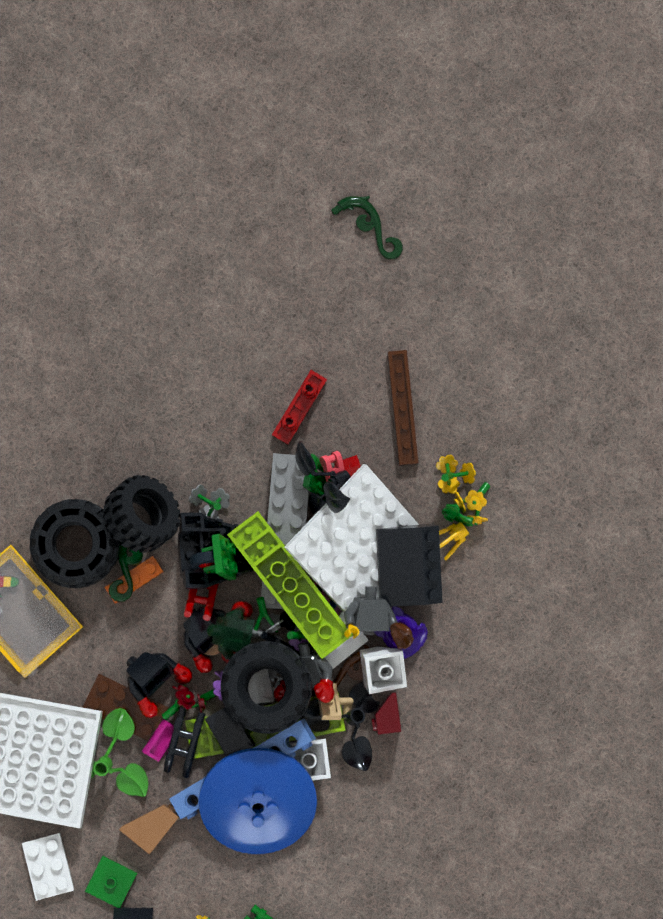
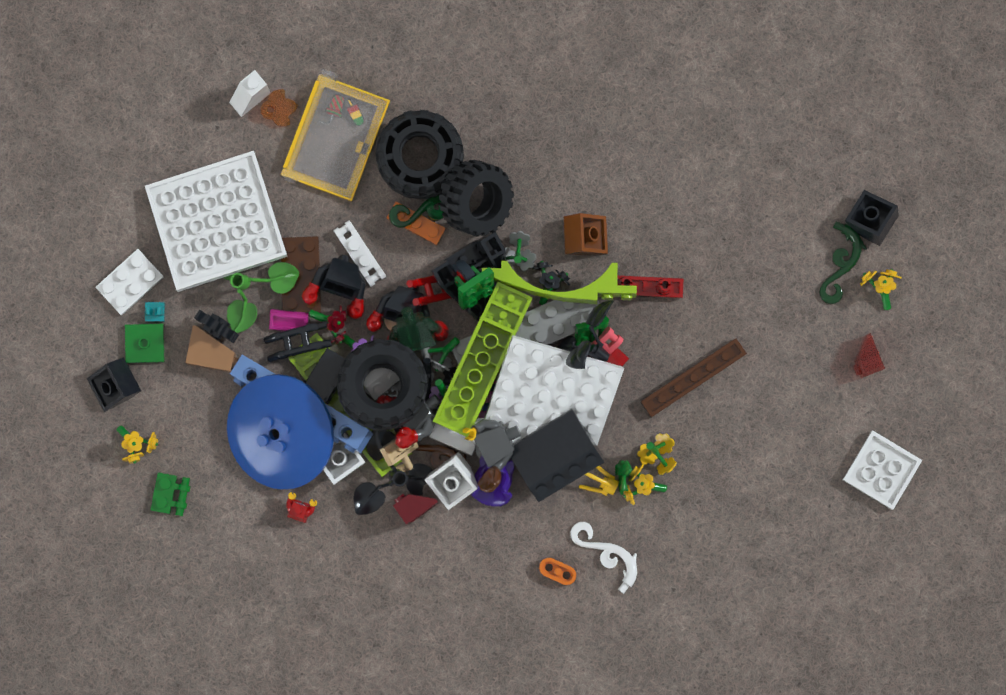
camera: 60 degrees right, 0 degrees up
(87, 857) = (154, 311): none -> teal tile
(131, 809) = (216, 326): none -> black gear
(134, 644) = (359, 253): none -> white plate
(225, 434) = (585, 234): none -> dark orange slope
(250, 488) = (550, 280): none -> black plant
(283, 442) = (603, 287): none -> lime slope
(336, 821) = (298, 510): none -> red piece
(345, 176) = (872, 217): none -> black slope
(411, 199) = (882, 285): none -> yellow plant
(466, 247) = (868, 358): none -> clear red slope
(510, 618) = (557, 572): none -> orange plate
(535, 549) = (630, 561): none -> white plant
(570, 287) = (882, 470): none -> white plate

